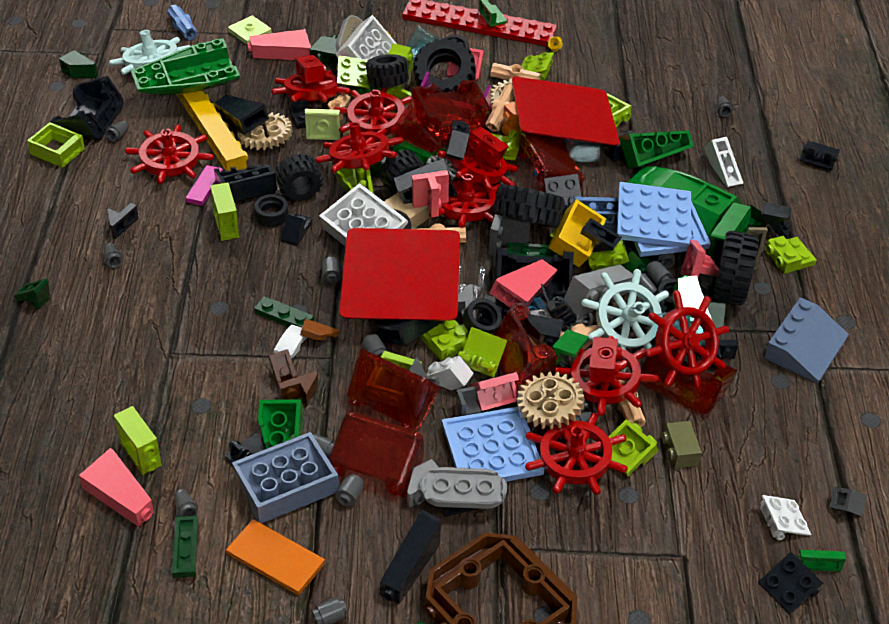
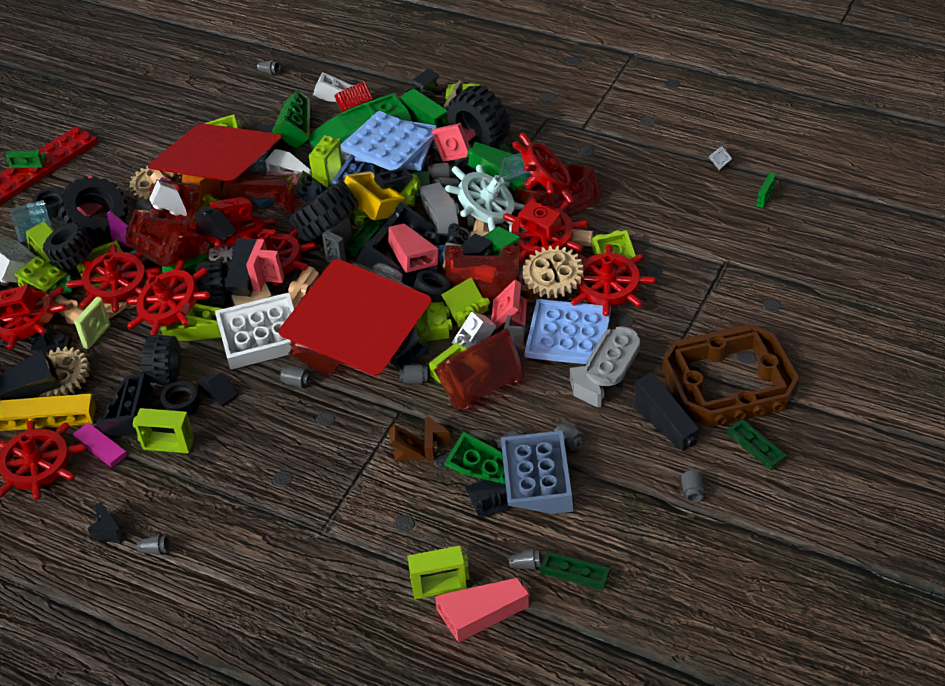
camera: 60 degrees left, 0 degrees up
(36, 292) = (168, 621): dark green slope -> none
(275, 557) = (614, 509): orange tile -> none
(281, 312) = (326, 429): dark green plate -> none
(291, 340) = (368, 430): white slope -> none
(317, 331) = (367, 407): dark orange tile -> none
(377, 451) = (541, 400): clear red windscreen -> none
(460, 98) = (167, 197): none -> white slope
(508, 72) = (126, 170): light nougat piece -> none
(539, 64) = (122, 156): lime hinge -> none
(552, 40) = (97, 134): yellow plate -> none
(593, 167) = (285, 162): none -> white slope
(604, 173) = (330, 150): none -> lime window
(681, 444) = (625, 219): olive brick -> none
(719, 175) = (353, 96): none -> red brick
(783, 517) = (725, 192): white hinge -> none
(791, 582) = (778, 212): black hinge -> none
(806, 341) = (557, 121): sand blue slope -> none
(819, 155) = (366, 39): black hinge -> none

